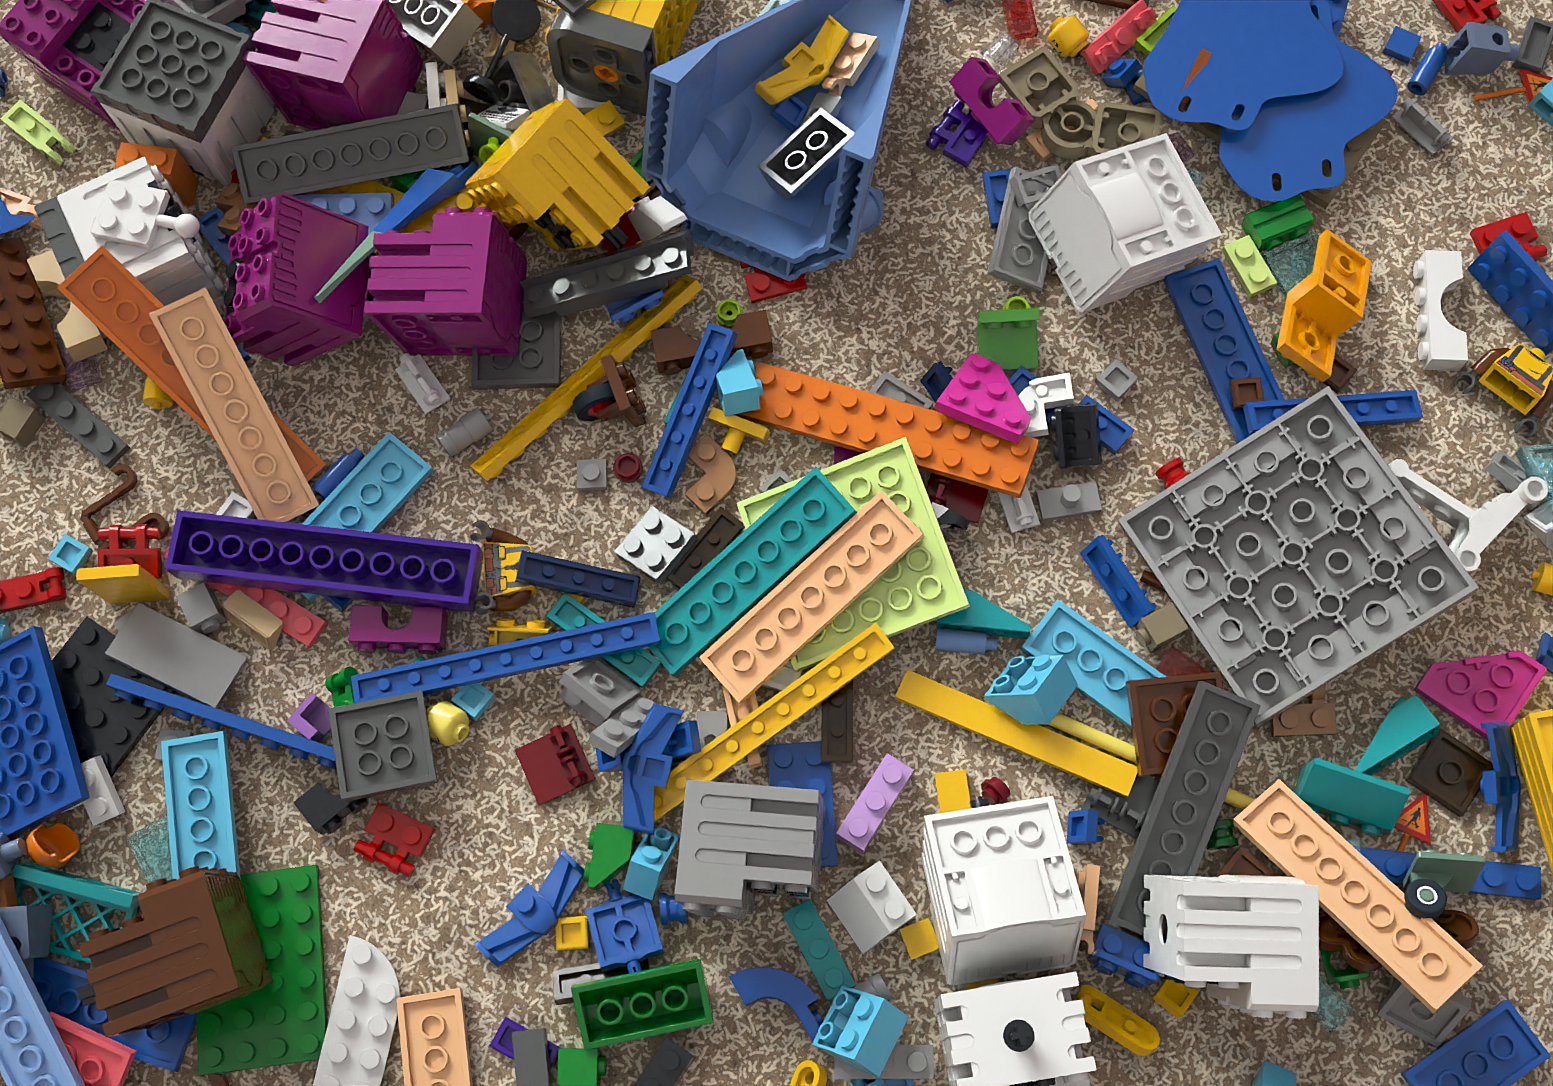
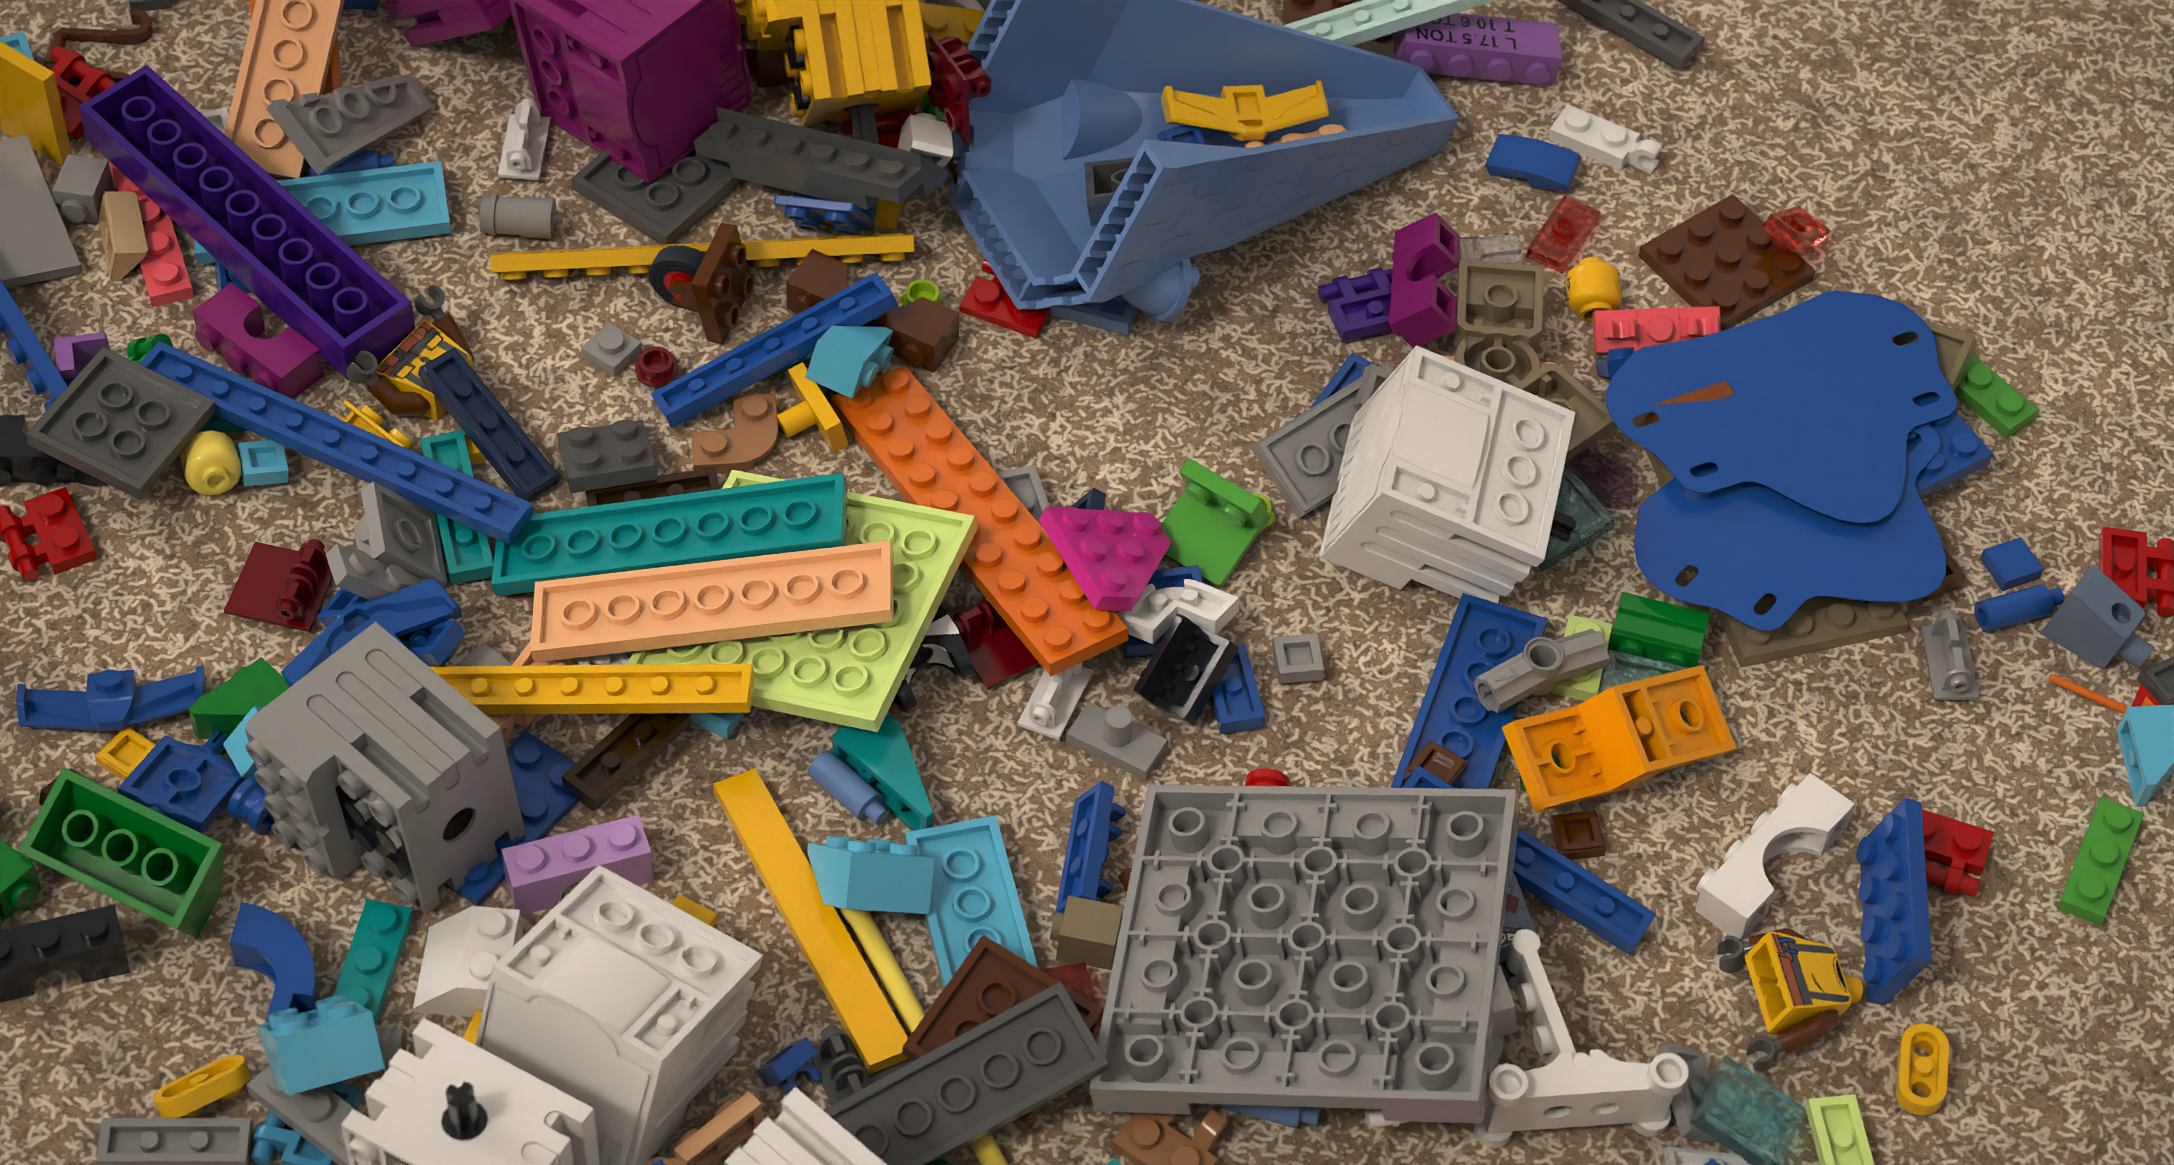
camera: 30 degrees right, 20 degrees down
(318, 452) = (348, 120): none -> light grey wing
(657, 171) = (954, 81): none -> dark red hinge
(1244, 306) = (1558, 662): none -> light grey piece

